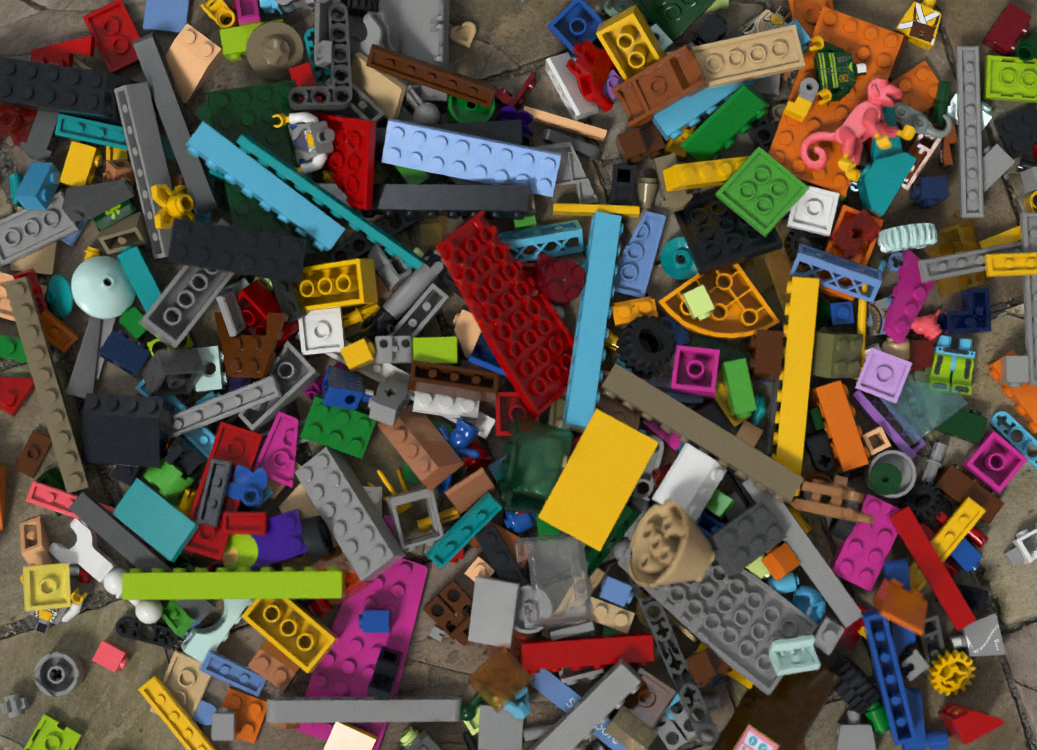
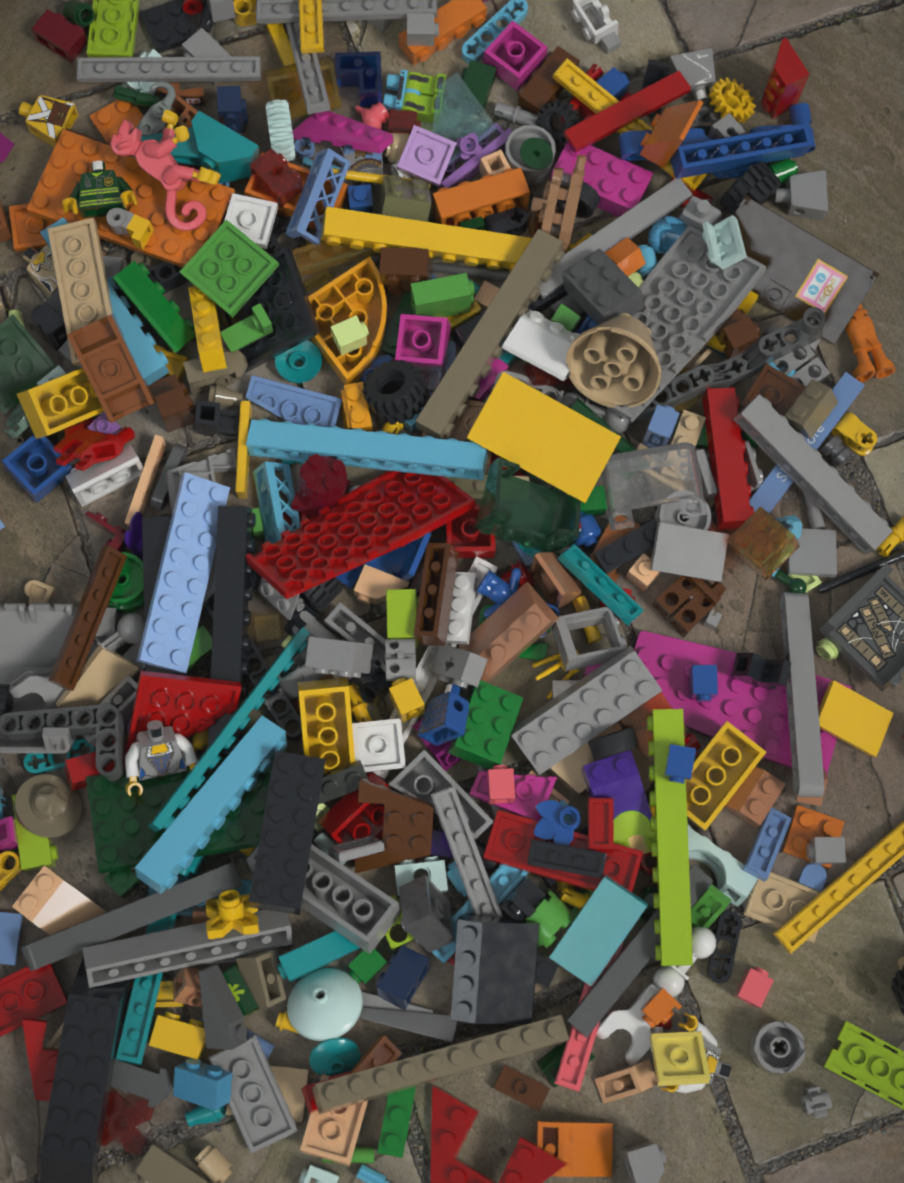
camera: 100 degrees left, 10 degrees down
(90, 571) = (659, 1008): none -> orange brick
(282, 437) = (501, 785): none -> coral brick
(290, 592) = (679, 763): none -> blue brick
(394, 294) = (338, 657): none -> light grey brick
(703, 209) = (247, 330): none -> bright green bracket
(897, 409) = (462, 144): none -> medium lavender plate

